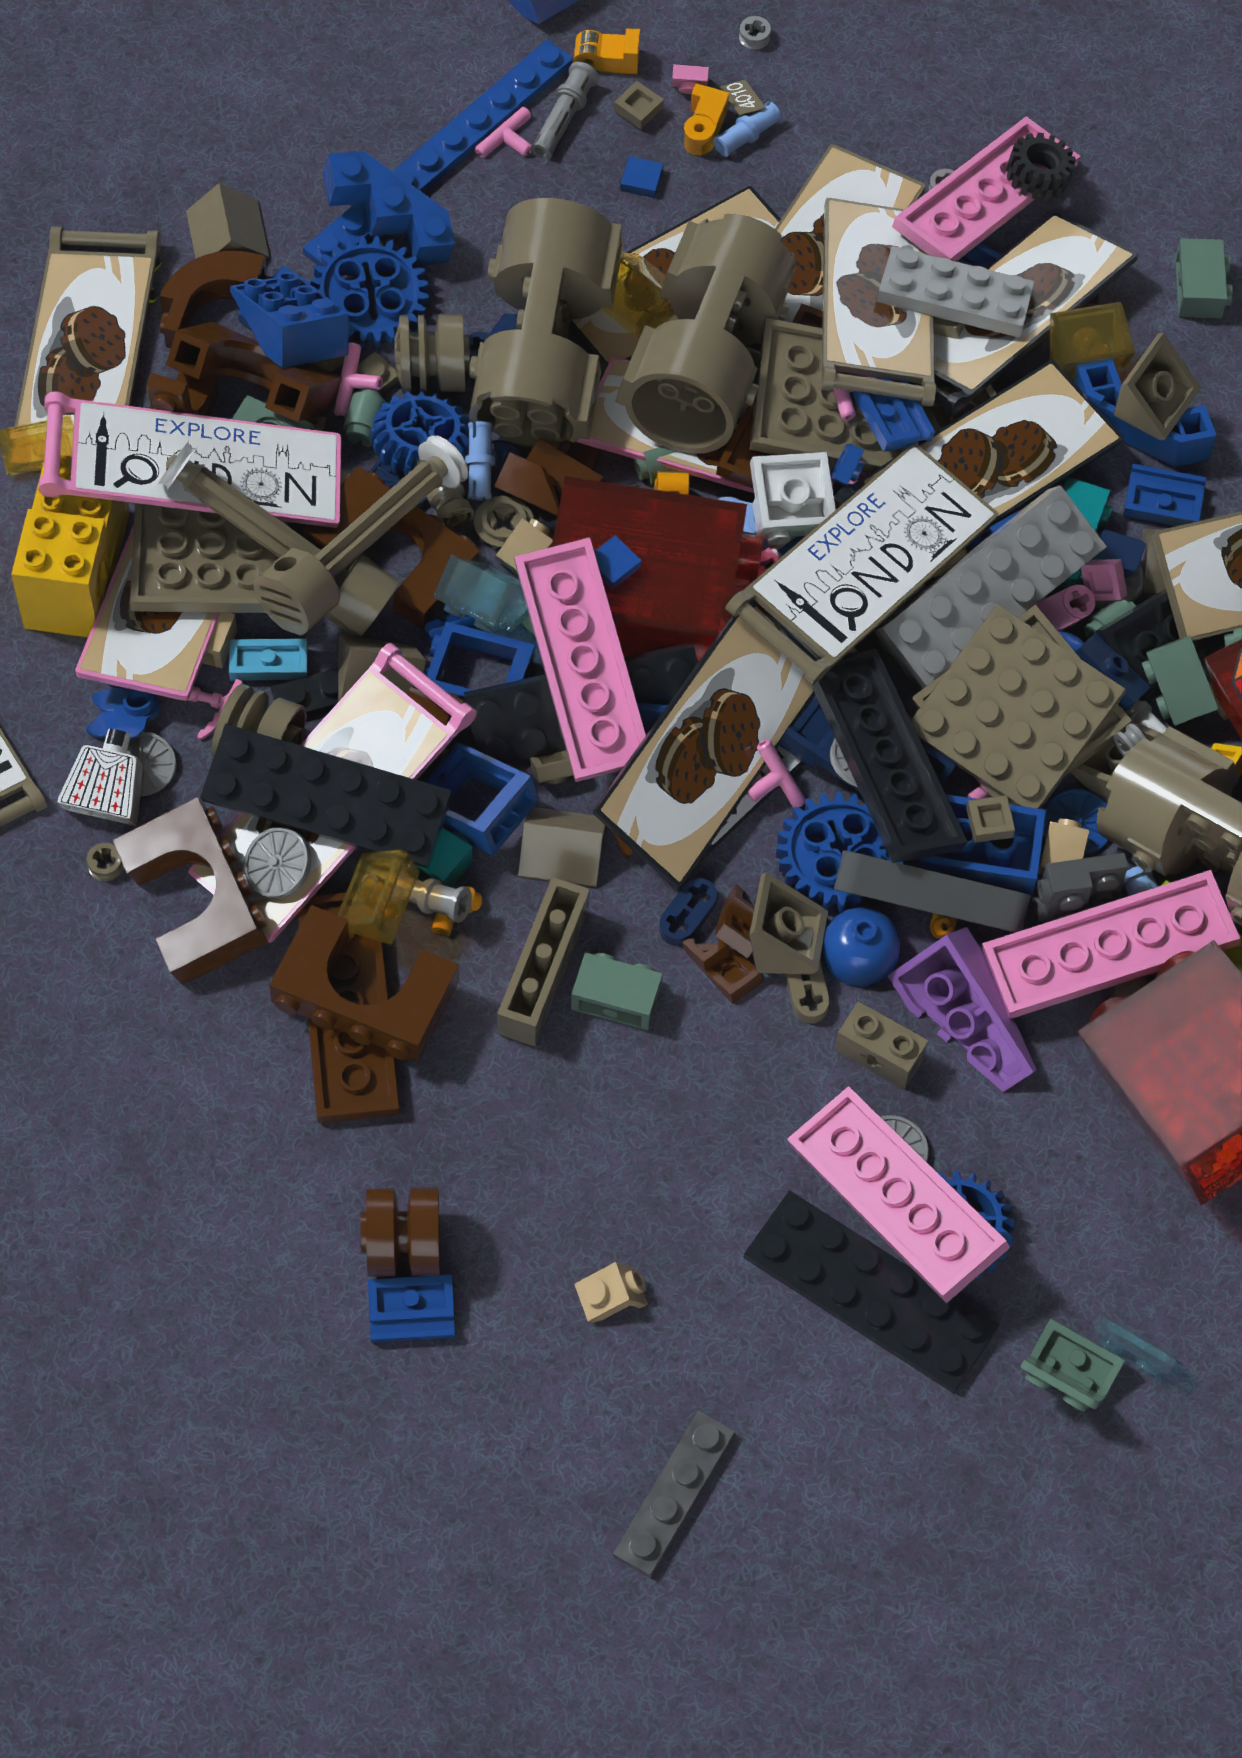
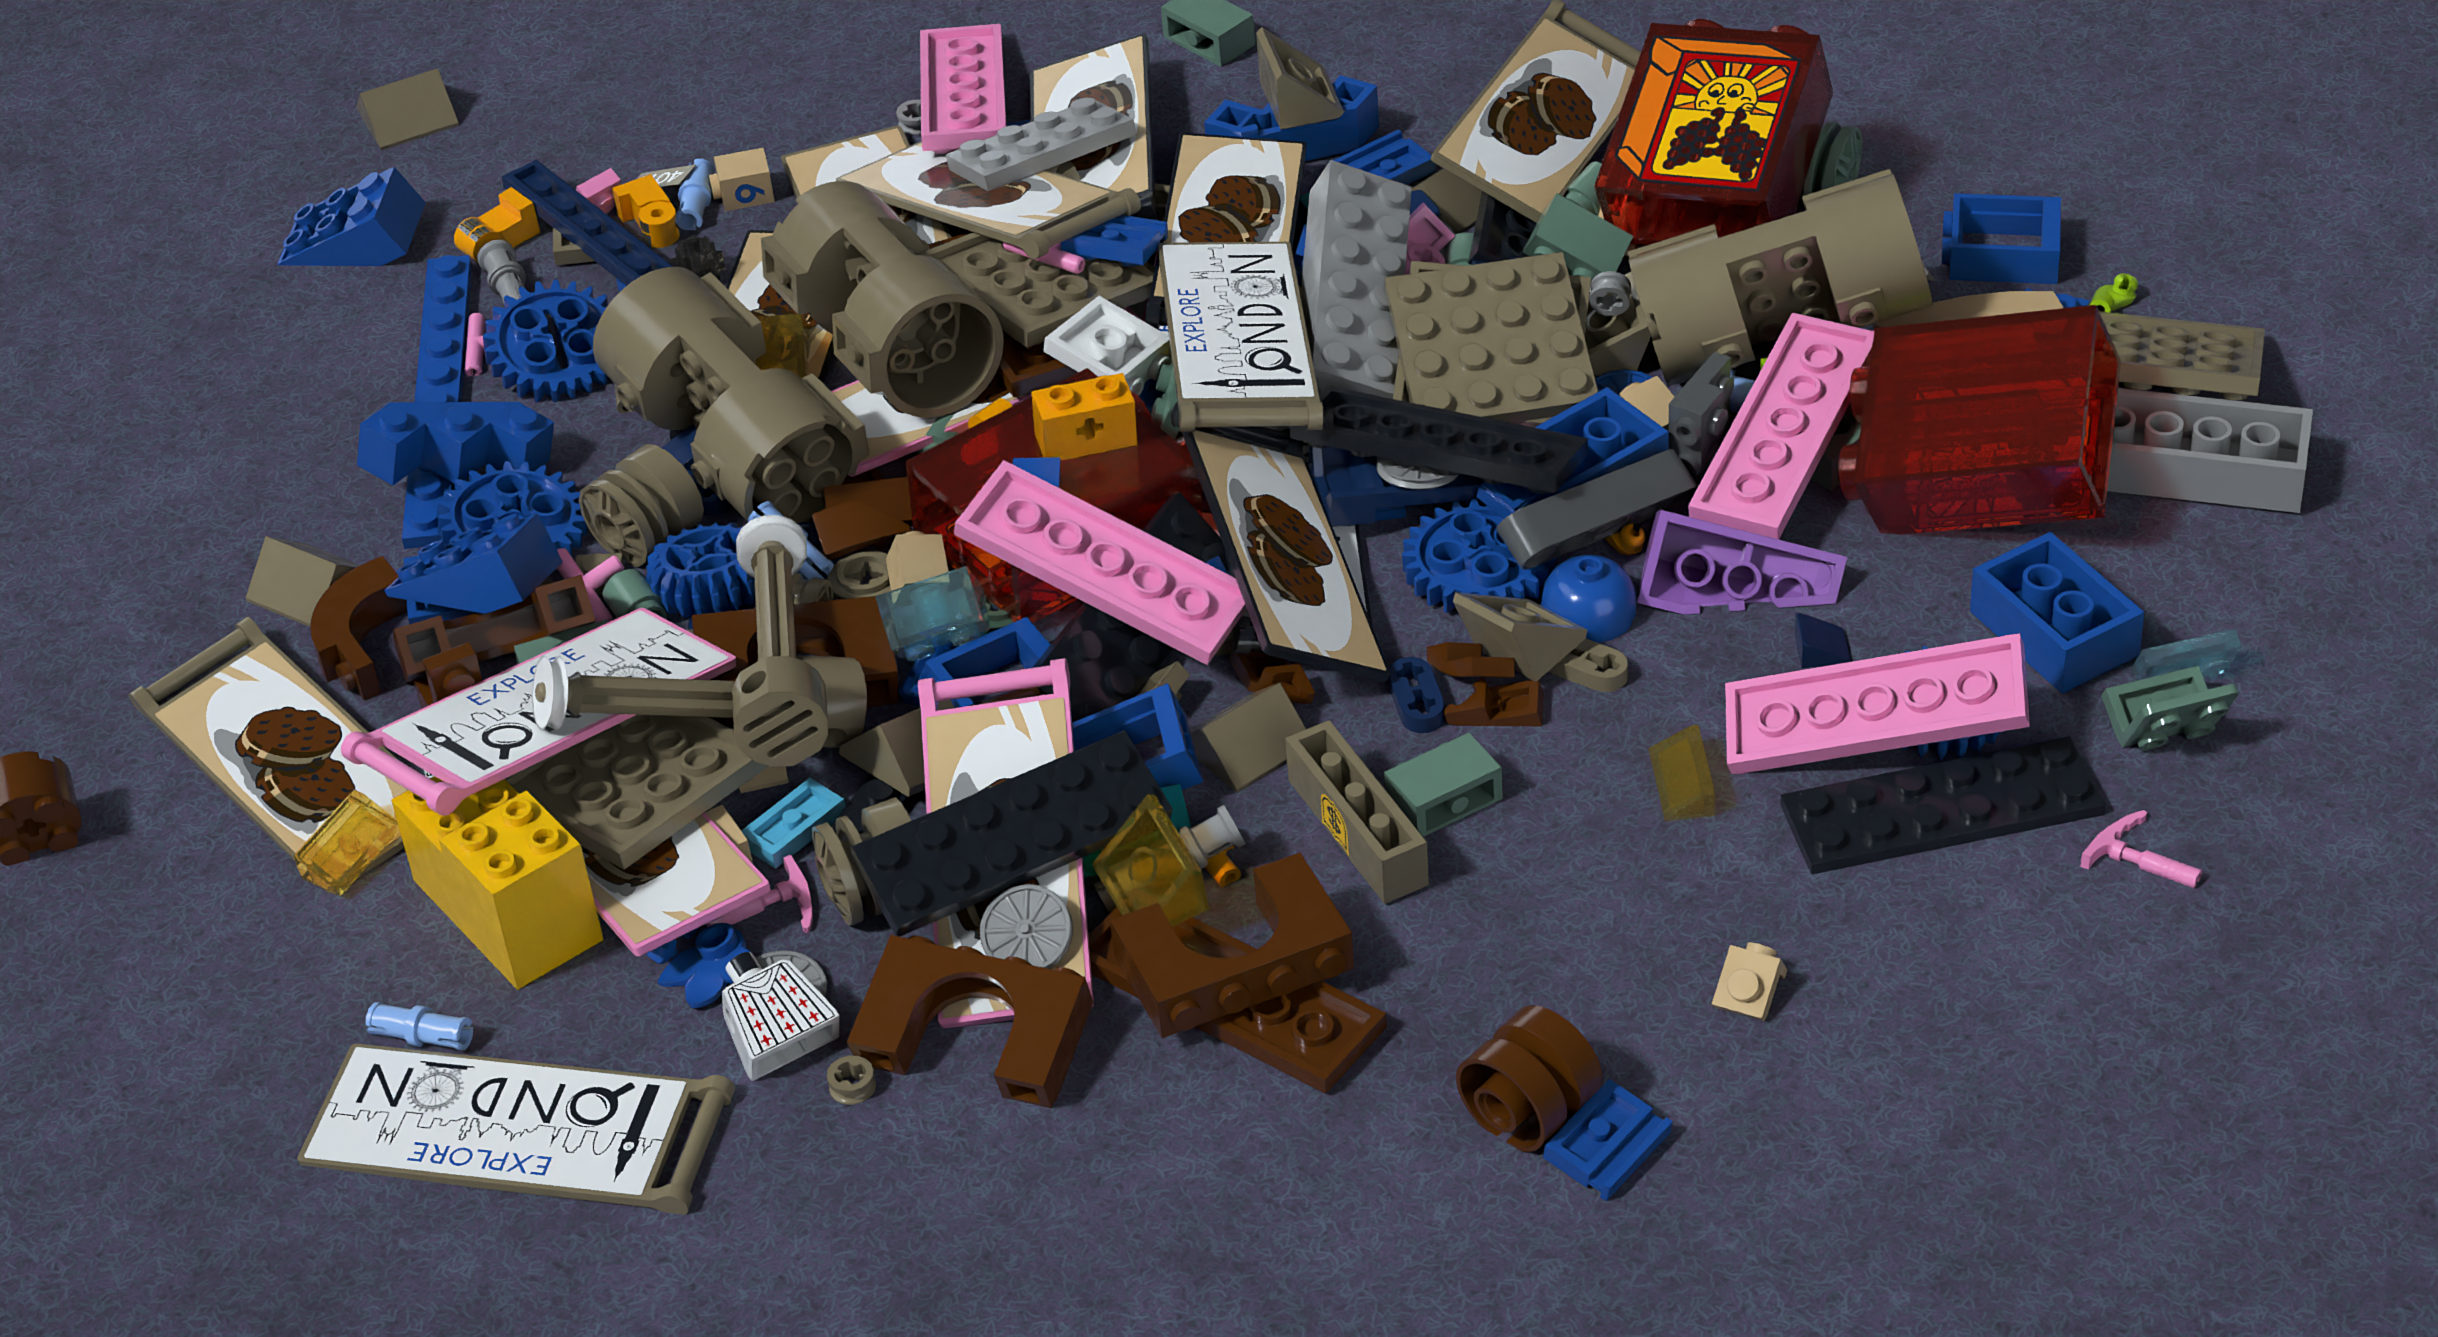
camera: 40 degrees left, 20 degrees down
(508, 164) = (525, 351): none -> blue gear
(650, 108) = (584, 223): none -> dark blue tile
(673, 1494) = (2009, 1069): flat silver plate -> none
(683, 188) = (698, 256): none -> clear smoke gear
(683, 546) = (1084, 417): none -> light orange brick
(747, 27) = (608, 128): light grey bush -> none
(756, 1120) = (1683, 776): none -> clear yellow slope
(777, 777) = (1359, 544): bright pink piece -> none
(783, 144) = (742, 179): none -> tan brick
(848, 465) = (1128, 287): blue plate -> none
(881, 1045) = (1707, 641): dark tan brick -> none
(932, 1450) = (2108, 843): none -> bright pink piece
(952, 1111) = (1819, 642): none -> dark blue slope
(990, 819) = (1580, 414): dark tan plate -> none
(1043, 152) = (987, 37): black tyre -> none
(1090, 336) = (1187, 99): clear yellow slope -> none
(1099, 1236) = (2062, 608): none -> blue brick

